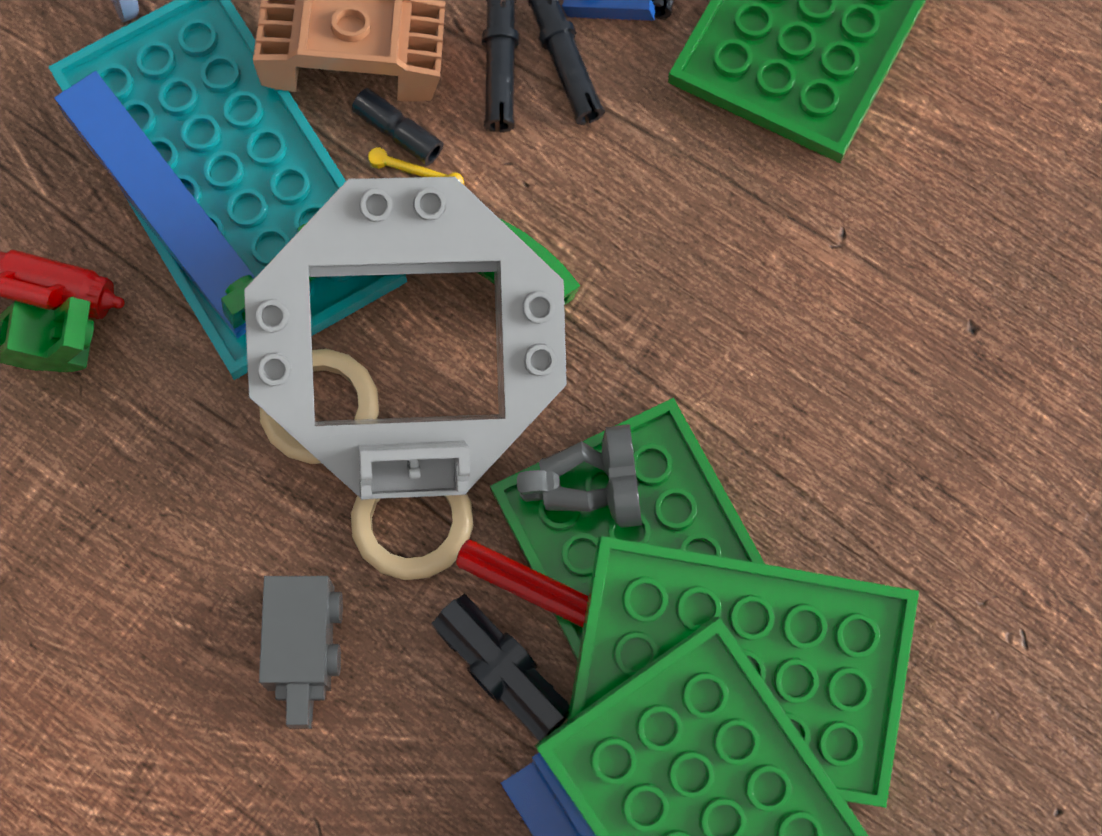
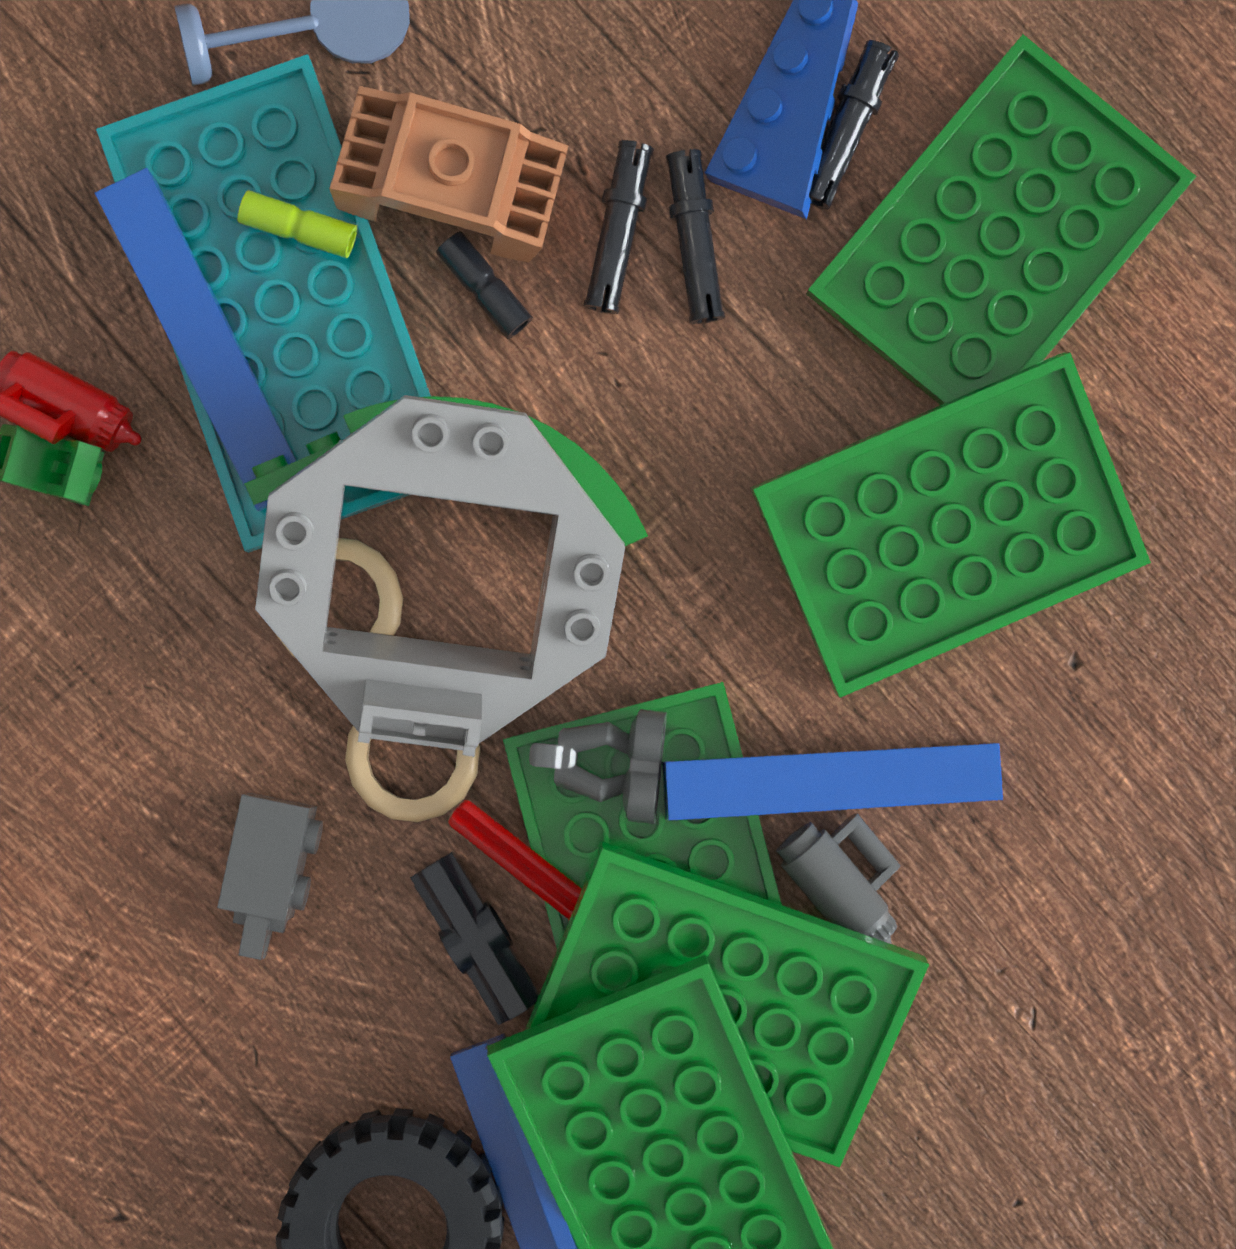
camera: 10 degrees right, 15 degrees up
(224, 101) = (291, 222): none -> lime piece
(379, 159) = (457, 318): yellow hinge -> none
(785, 462) = (831, 781): none -> slope
(814, 547) = (835, 882): none -> dark grey piece
(835, 230) = (951, 524): none -> green plate

